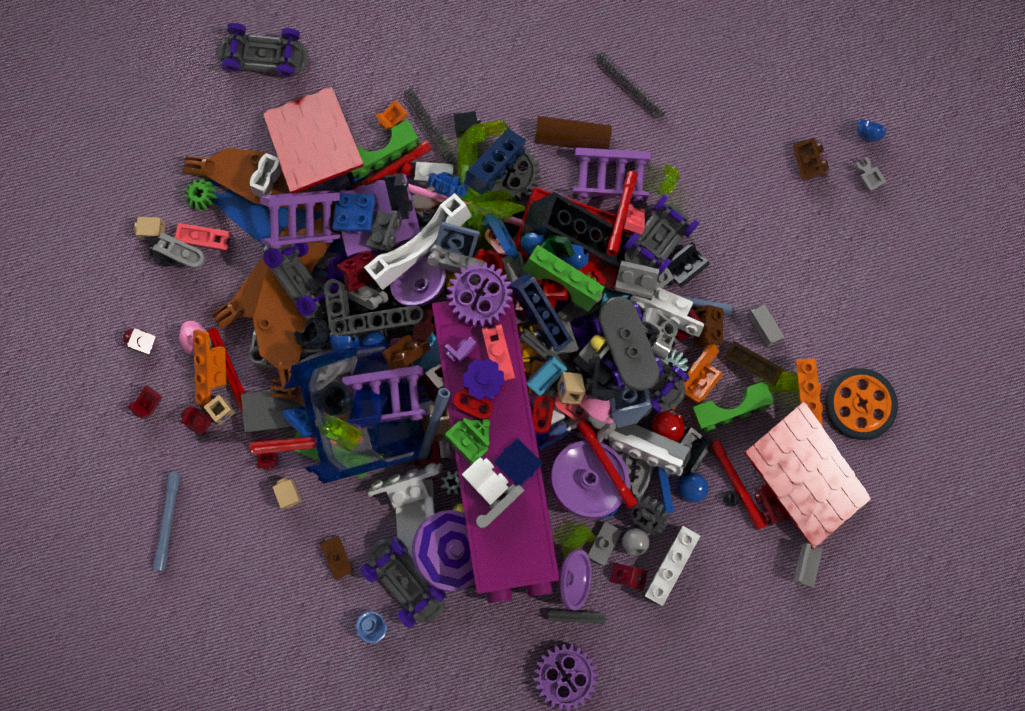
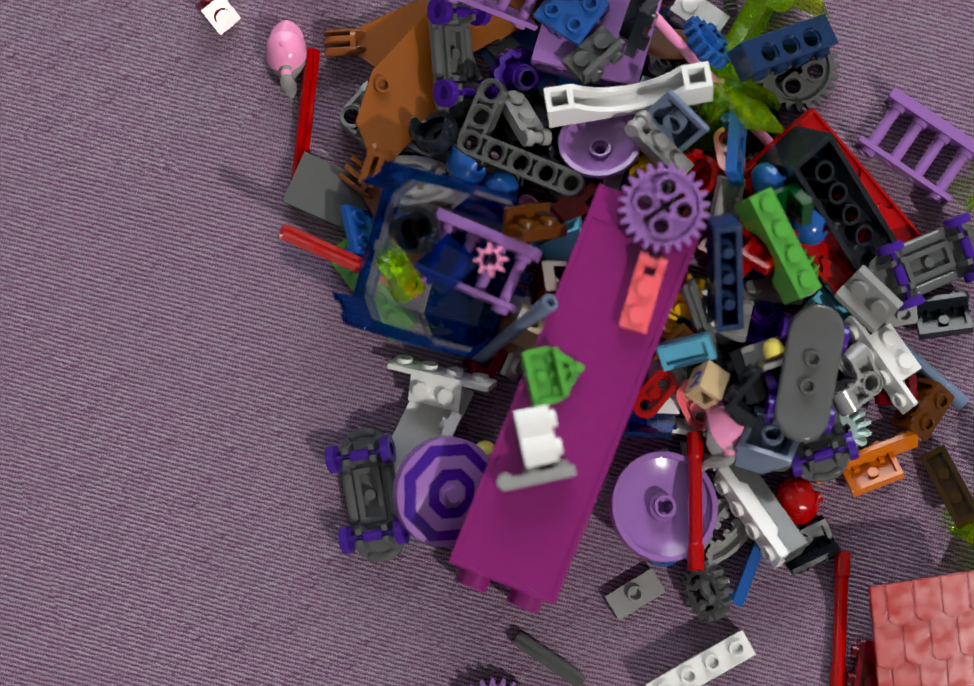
camera: 30 degrees right, 5 degrees up
(145, 403) = (183, 94): dark red bracket -> none
(172, 489) = (101, 287): sand blue piece -> none
(196, 420) = (232, 150): dark red bracket -> none
(209, 367) = (283, 96): orange bracket -> none
(219, 409) = (268, 155): tan brick -> none
(268, 460) = (289, 253): dark red bracket -> none
(286, 493) = (290, 305): tan brick -> none
(337, 557) = (305, 418): reddish brown plate -> none
(354, 272) = (529, 85): dark red bracket -> none
(371, 627) = (298, 525): medium blue hair -> none
(390, 384) = (490, 250): none -> bright pink gear
(450, 477) = (487, 410): light aqua gear -> none
(464, 349) = (606, 261): medium lavender bracket -> none
(473, 405) = (578, 335): red plate -> none
(483, 379) = (606, 314): dark purple plant -> none
(518, 462) = (589, 437): clear blue piece -> none
(572, 133) = (902, 66): reddish brown brick -> none
(575, 579) = (574, 615): medium lavender dish -> none
(577, 539) = (594, 572): clear neon green leg -> none
(615, 239) = (873, 233): red piece -> none
(627, 576) = (639, 649): dark red bracket -> none
(635, 219) = (912, 221): coral plate -> none
(635, 542) = (673, 614): light grey piece -> none
(693, 487) = (783, 591): blue hair -> none
(727, 499) = (816, 629): black hinge -> none
(755, 398) = (857, 516): bright green arch -> none

